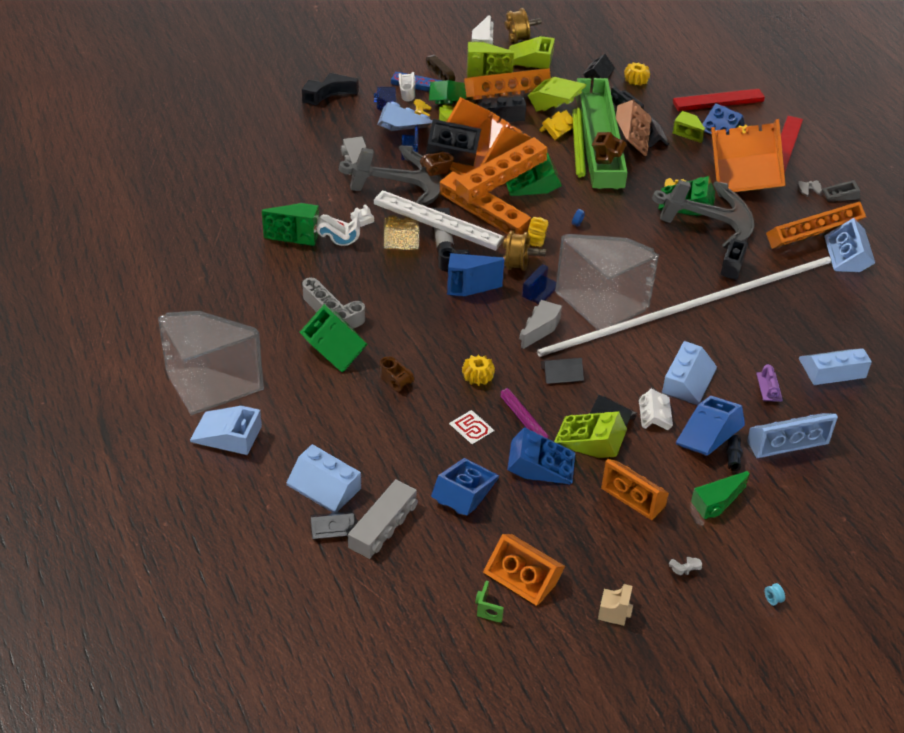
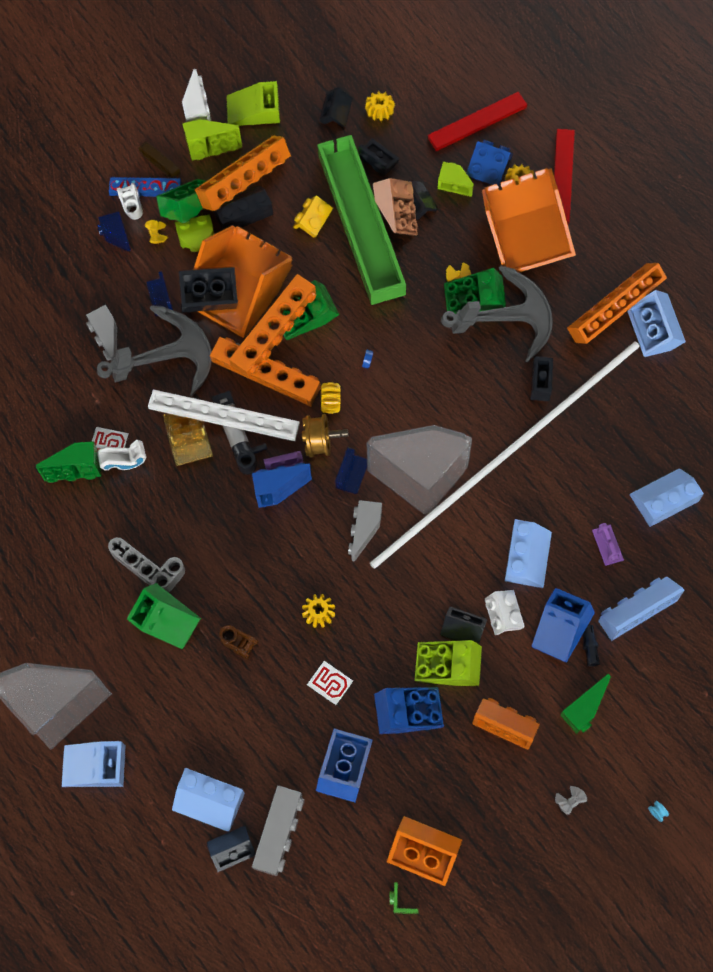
camera: 10 degrees left, 25 degrees up
(334, 84) = (48, 220): black arch -> none
(363, 215) = (139, 421): white tile -> none
(397, 118) = (141, 265): light blue slope -> none
(437, 163) = (196, 326): reddish brown piece -> none
(519, 25) = (230, 64): pearl gold wheel -> none
(522, 413) = (376, 654): magenta axle -> none
(555, 93) = (299, 173): lime slope -> none
(563, 370) = (401, 582): black panel -> none
(578, 142) = (341, 241): lime axle -> none
(607, 147) = (377, 253): reddish brown brick -> none
(616, 605) = (519, 869): tan brick -> none
(804, 187) = (593, 238): light grey piece -> none
(845, 191) = (649, 235): dark grey slope -> none

